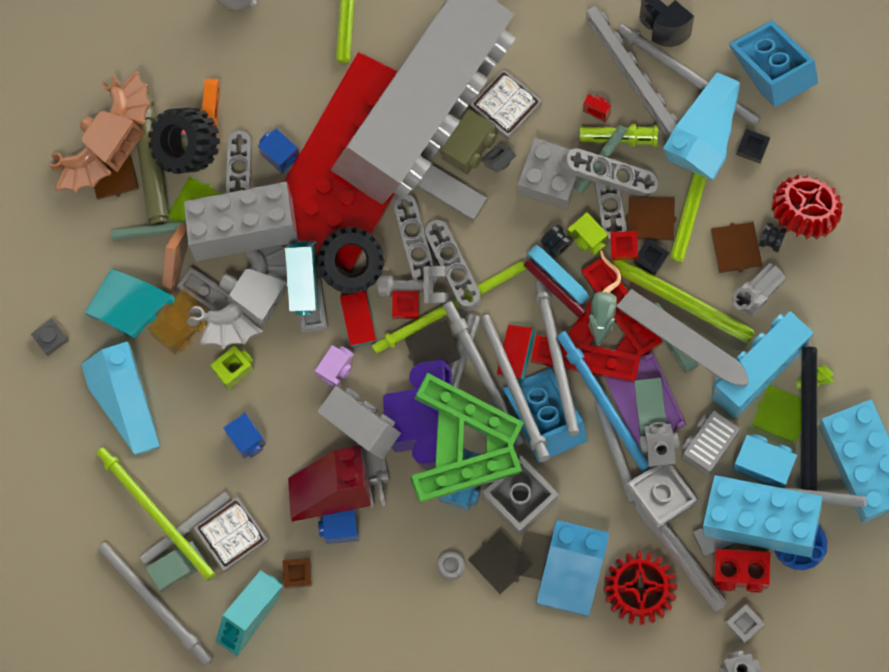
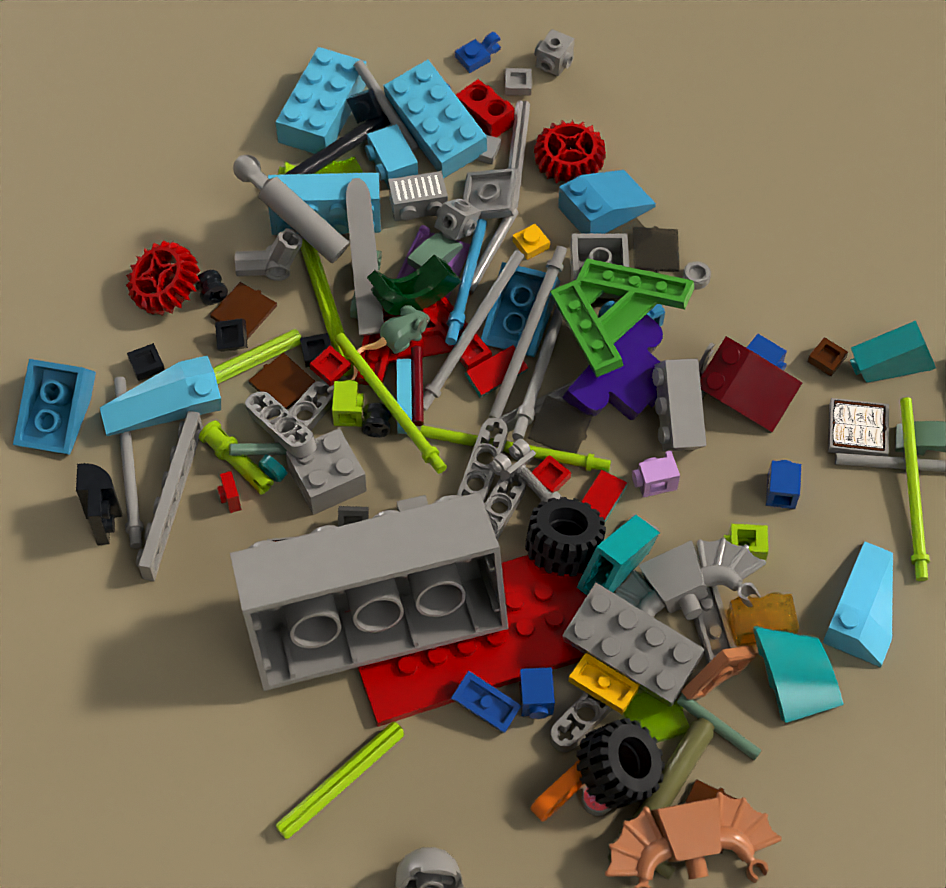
camera: 145 degrees left, 15 degrees down
(49, 337) = (894, 712): dark grey plate -> none
(238, 181) = (604, 683): none -> yellow plate
(303, 116) = (486, 702): none -> blue plate
(490, 235) = (430, 453): none -> lime bar
(589, 144) = (272, 468): none -> teal tile
(595, 485) = (531, 241): none -> yellow plate
(624, 344) = (418, 289): none -> dark green arch
(718, 214) = (231, 335): none -> black plate
(763, 314) = (292, 209): none -> light grey piece
(806, 624) = (476, 54): none -> blue plate
(826, 479) = (364, 106): none -> black plate

